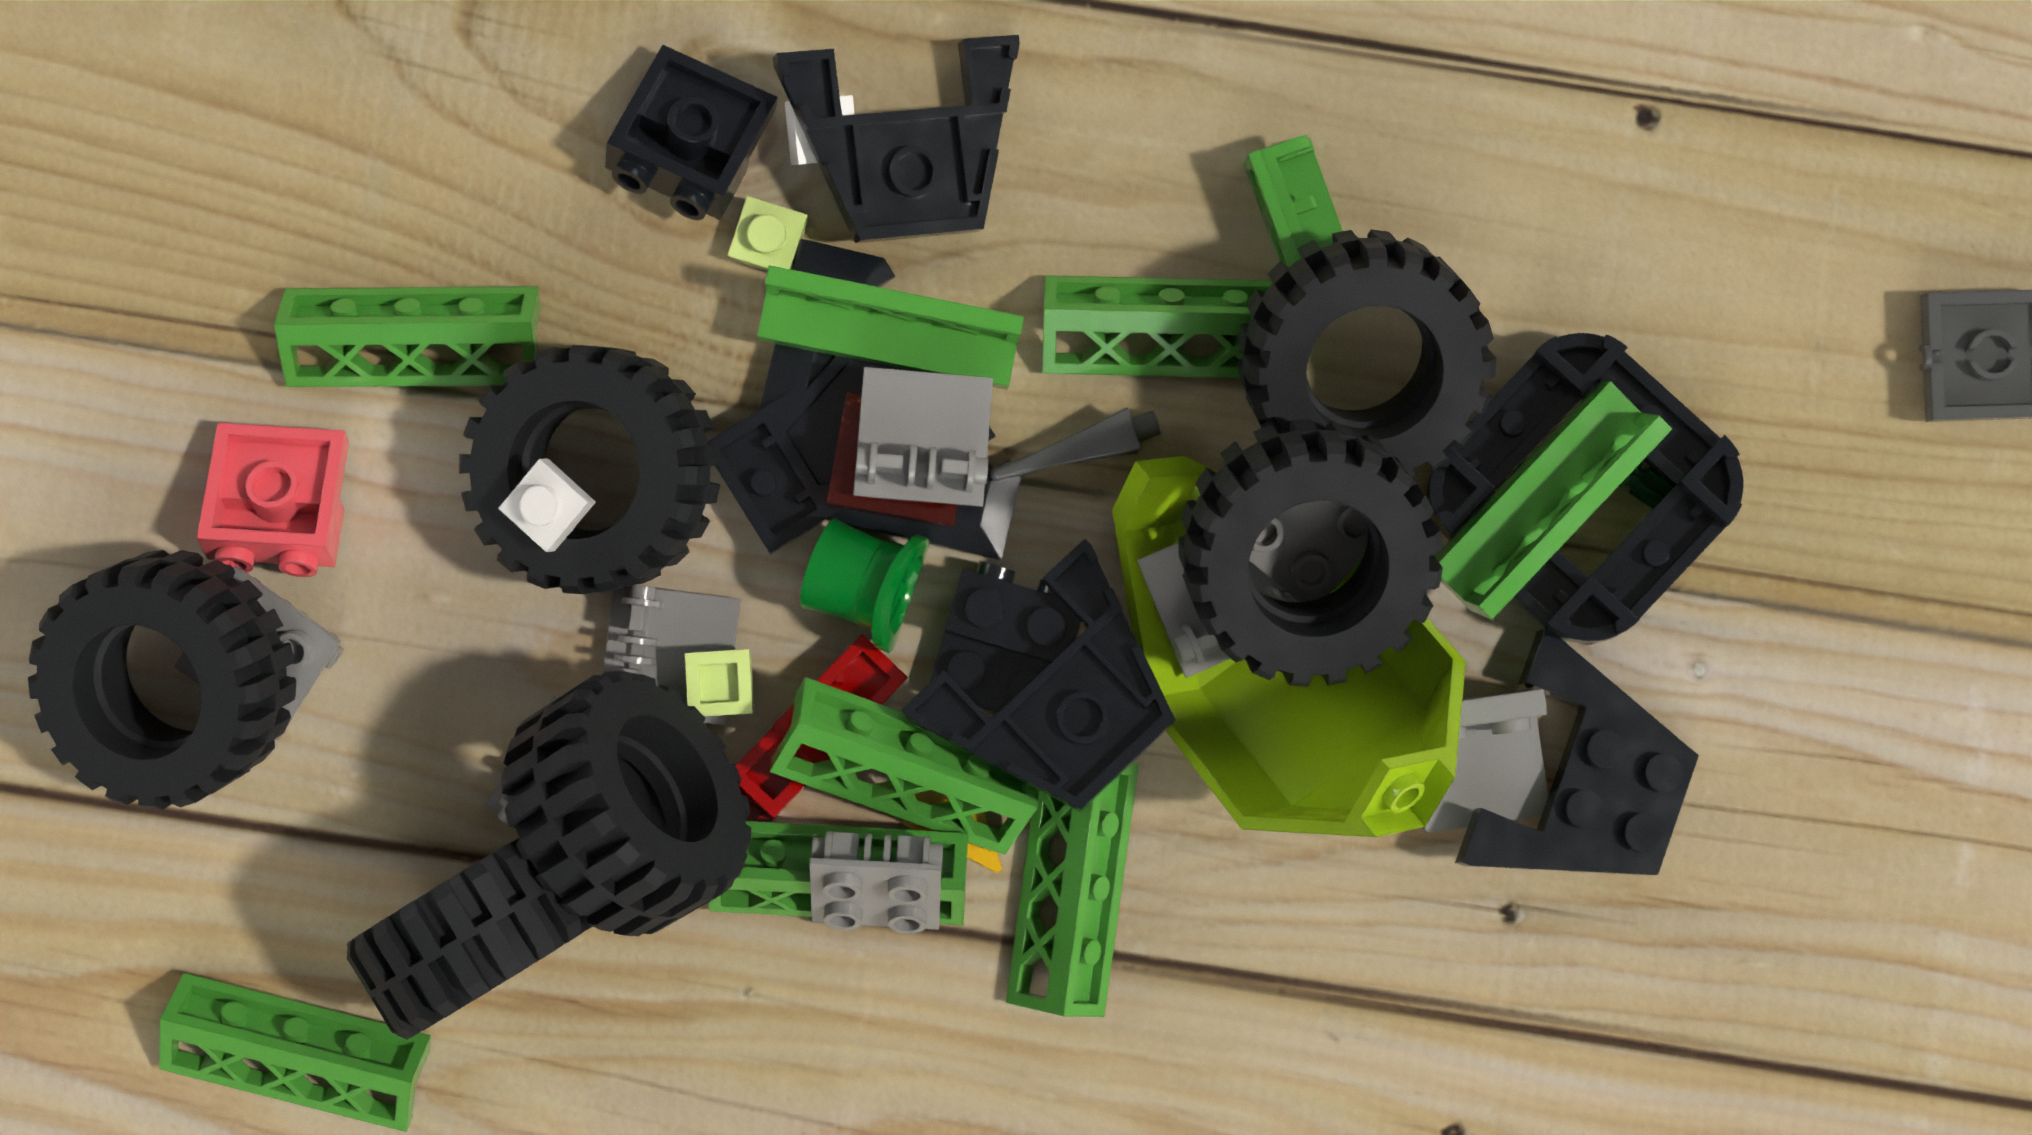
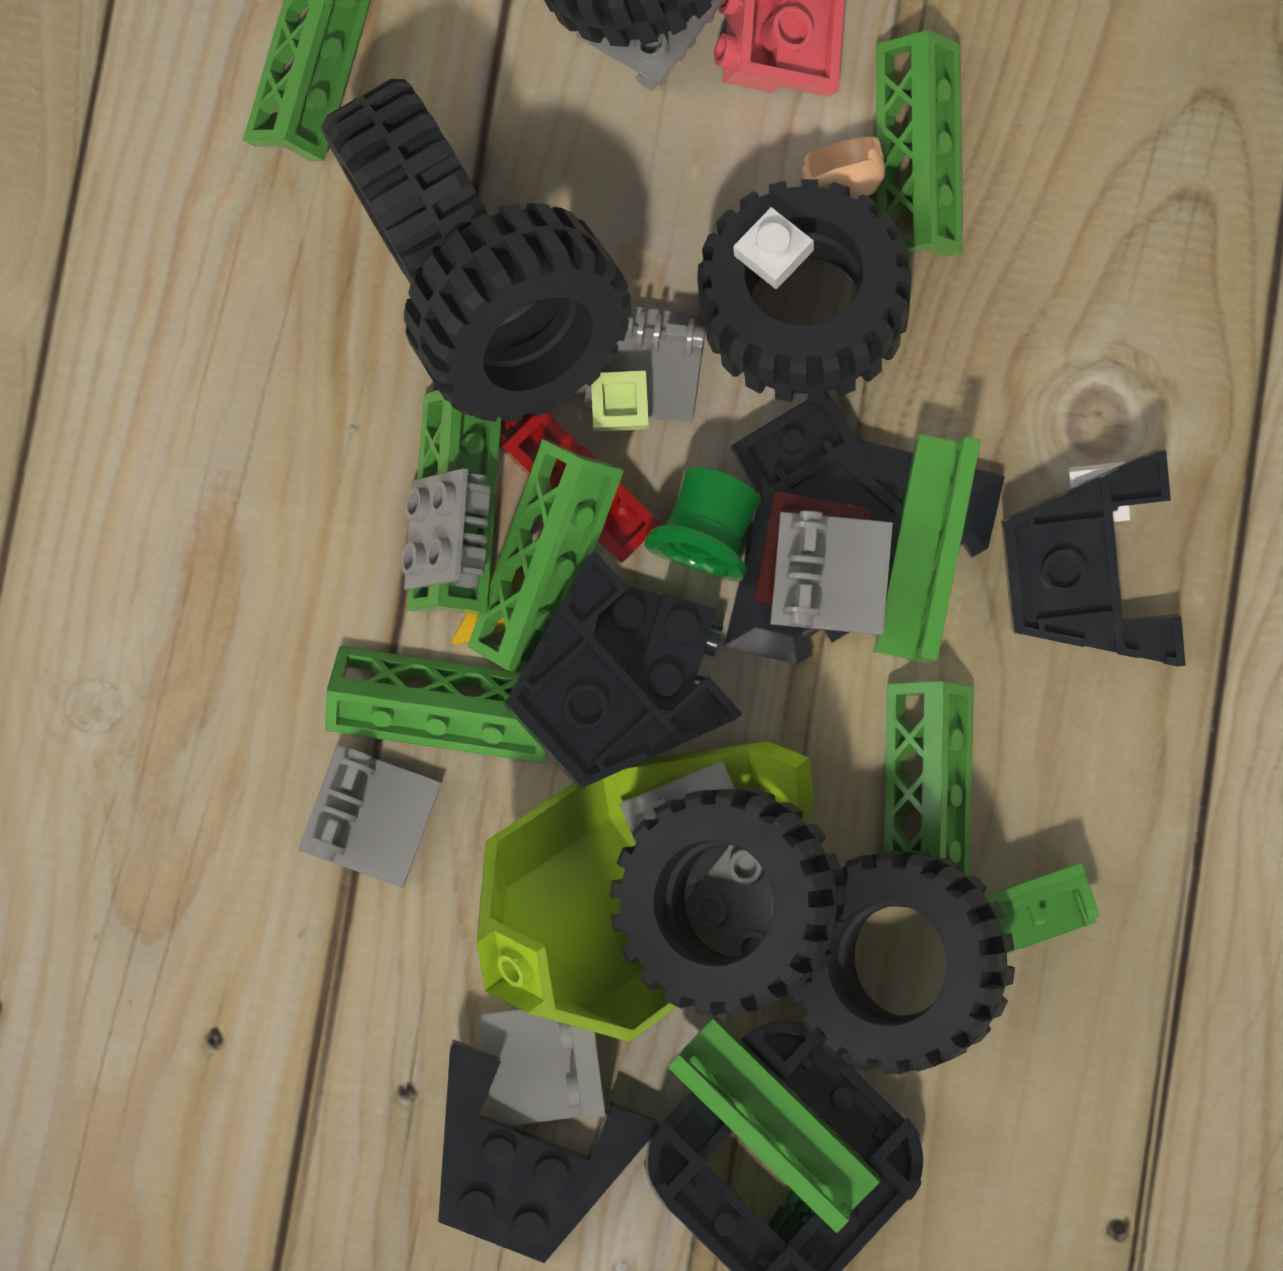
camera: 90 degrees right, 5 degrees down
(435, 421) = (850, 162): none -> light nougat hair
(688, 134) = (1094, 379): black plate -> none
(767, 235) = (1007, 448): yellowish green plate -> none
(1108, 438) = (829, 737): dark grey piece -> none
(1201, 963) = (370, 816): none -> light grey hinge

